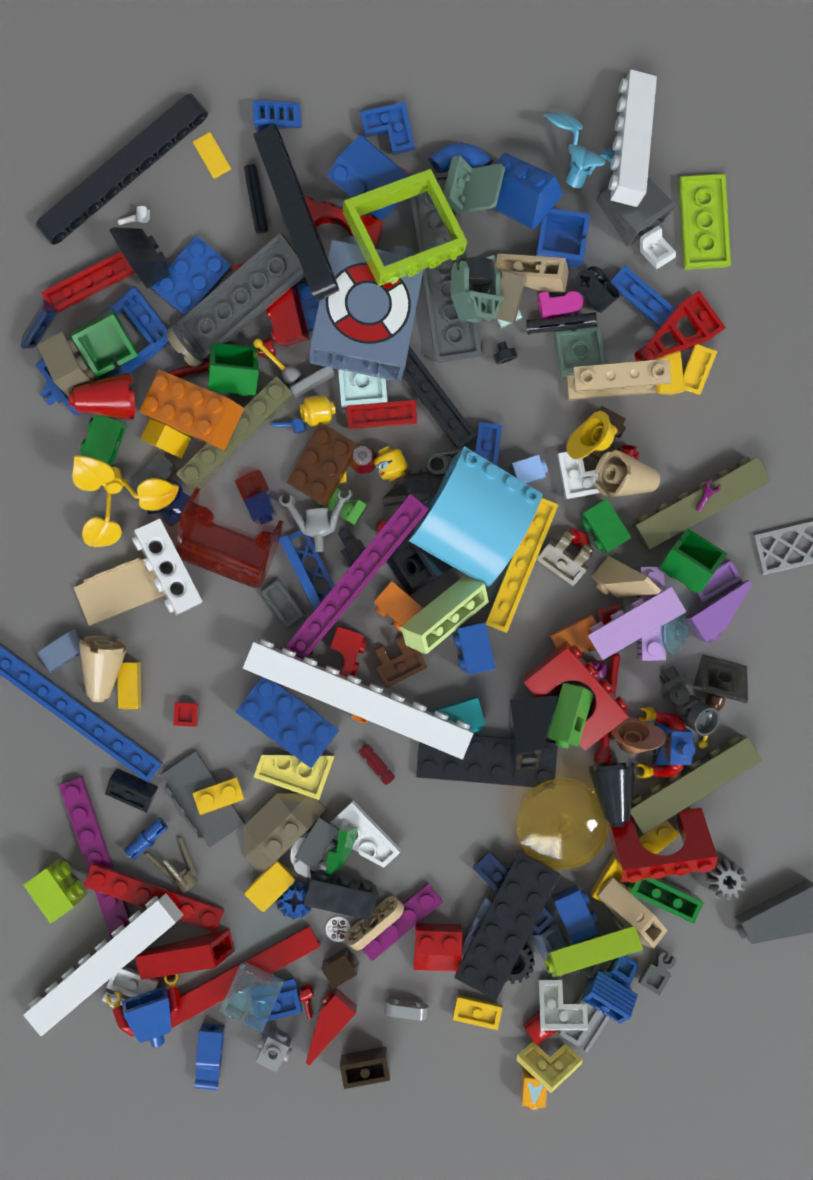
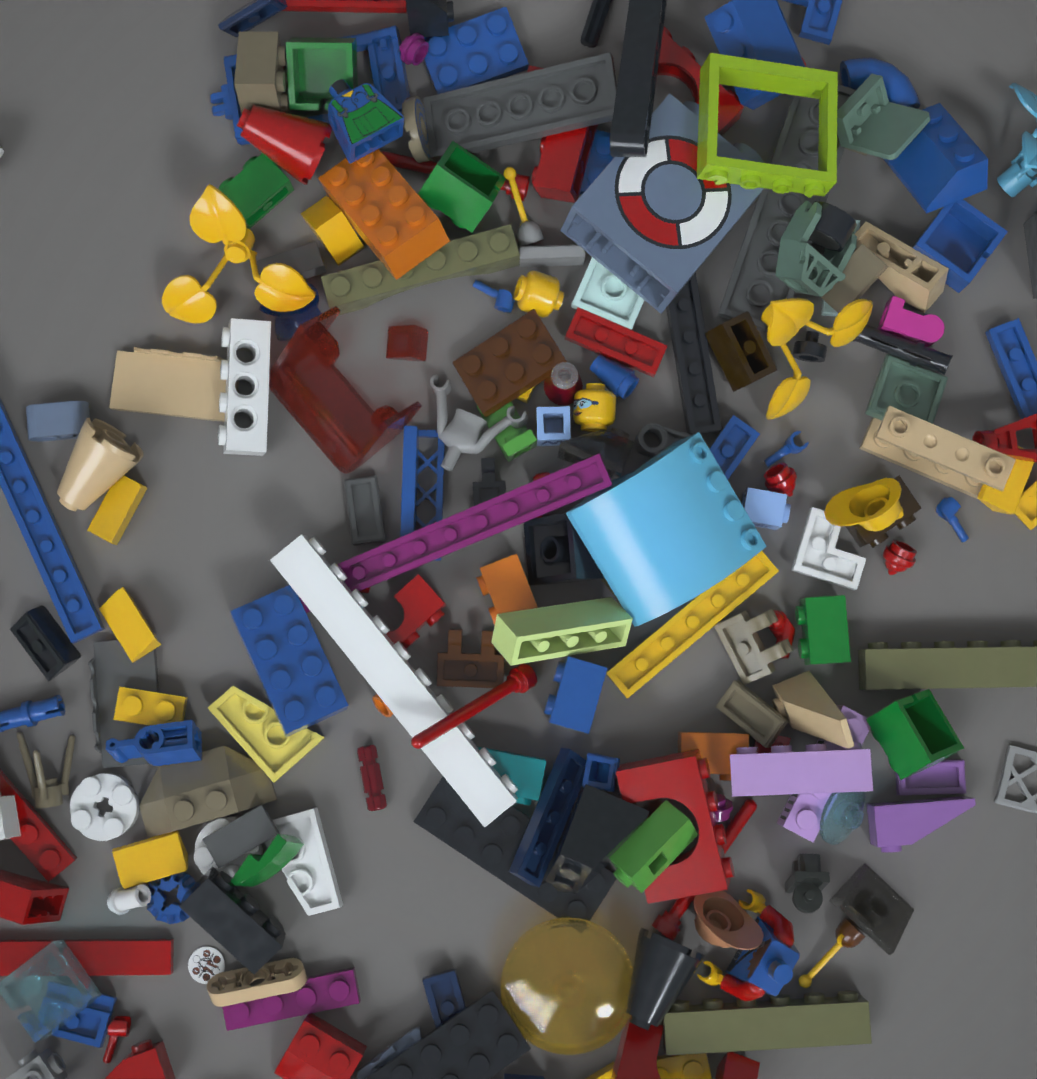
camera: 30 degrees right, 5 degrees down
(146, 360) = (362, 119): none -> torso
(153, 295) = (414, 49): none -> magenta plate
(177, 752) = (129, 625): none -> yellow slope
(186, 714) = (167, 583): red plate -> none
(231, 858) = (86, 815): none -> white plate
(246, 809) = (160, 744): none -> blue piece
(261, 508) = (402, 376): clear blue brick -> none
(266, 919) = (123, 900): none -> white pin
(340, 967) = (181, 1016): dark brown brick -> none
(371, 489) = (552, 425): none -> light blue brick
(392, 437) = (615, 376): none -> blue cone
(433, 658) = (519, 681): none -> red piece
(463, 379) = (740, 351): none -> dark brown brick
(482, 347) = (784, 322): none -> yellow plant
(498, 730) = (549, 818): none -> dark blue plate
(514, 686) = (601, 771): none -> blue slope
(523, 424) = (788, 448): none -> blue hand
(529, 446) = (780, 479): none -> red plate
(587, 601) = (752, 714): none -> dark tan tile
(598, 289) = (969, 330): black piece -> none
(624, 475) = (883, 578): tan cone -> none
(641, 410) = (946, 510): none -> blue hand
(698, 716) = (818, 939): dark grey wheel -> none
(707, 493) = (978, 657): magenta hand -> none

